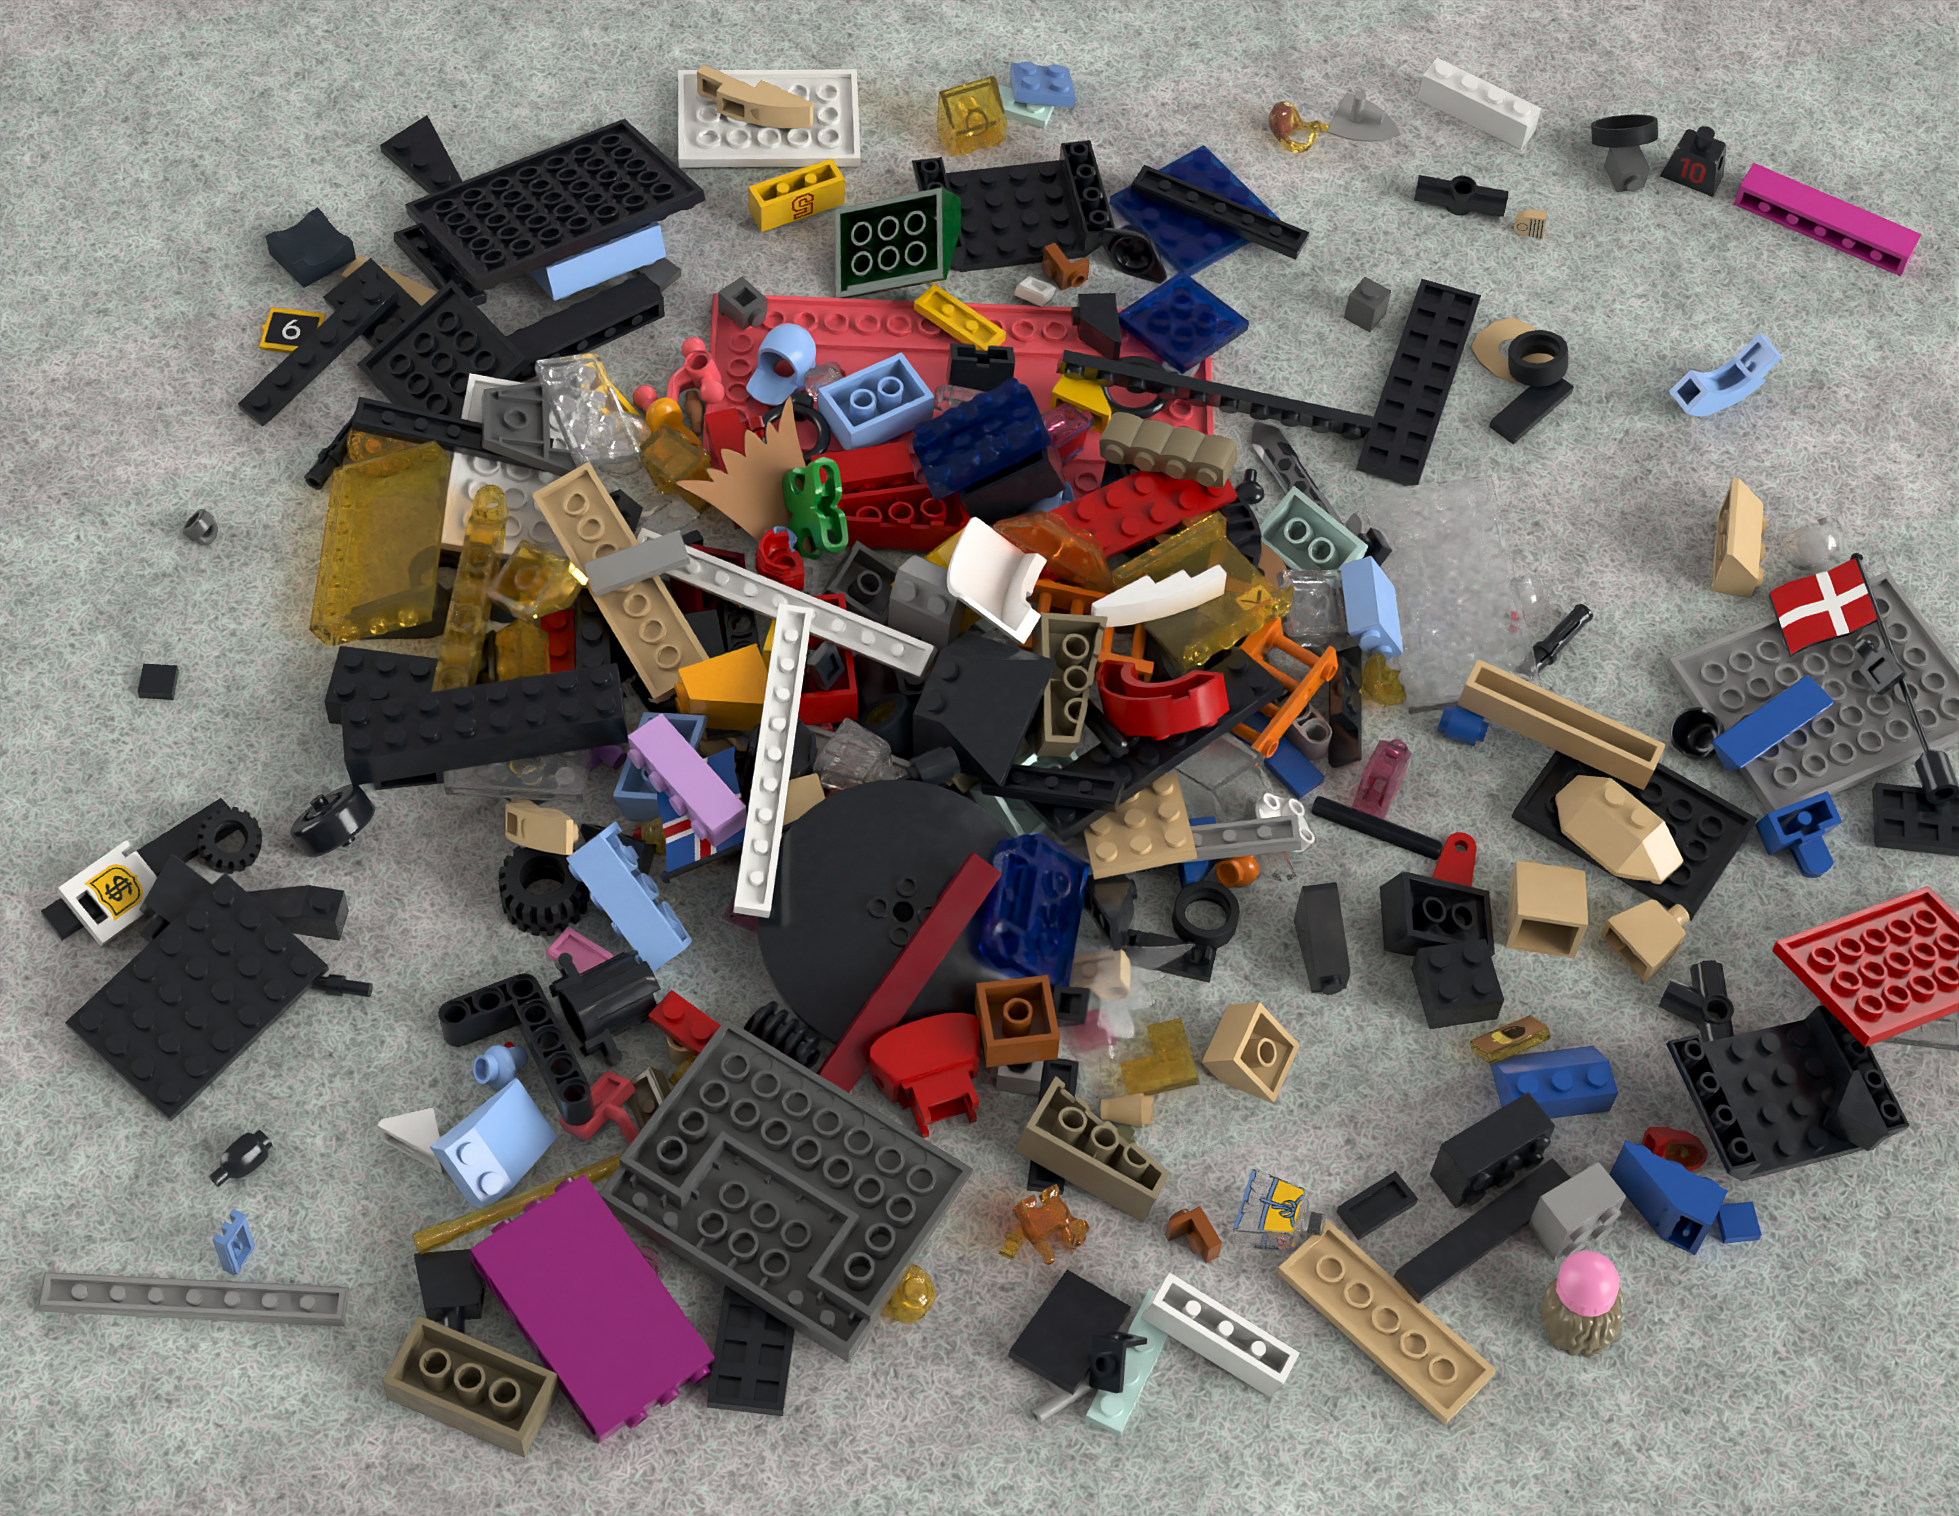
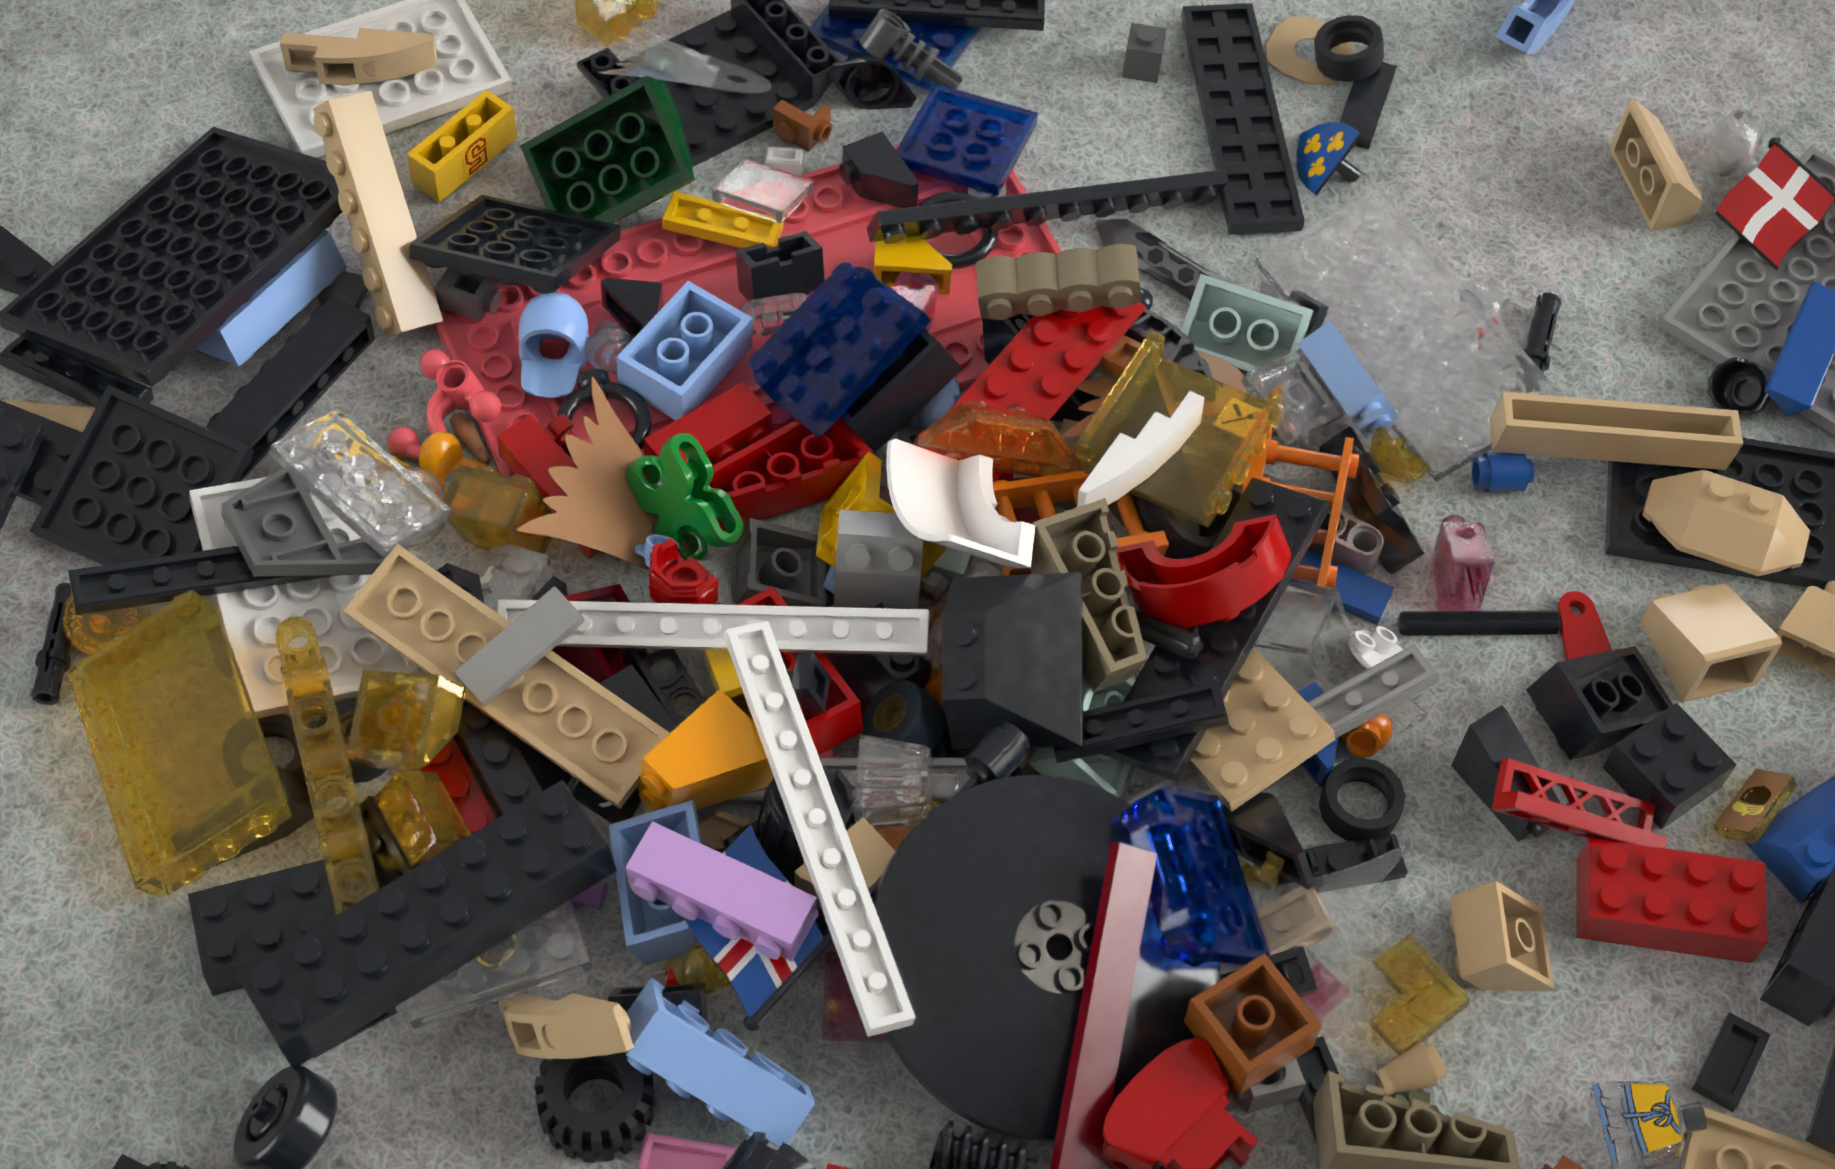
camera: 25 degrees left, 0 degrees up
(697, 223) = (376, 213): none -> tan brick
(793, 280) = (515, 243): none -> black plate
(859, 352) = (632, 302): none -> black slope
(990, 190) = (679, 64): none -> clear piece
(1002, 306) = (762, 190): none -> clear tile
(1091, 930) = (1267, 875): none -> clear yellow arm
(1159, 221) = (887, 36): none -> dark grey piece
(1356, 991) = (1572, 816): none -> red fence
(1397, 1075) = (1671, 900): none -> red brick
(1467, 433) = (1323, 152): none -> blue shield

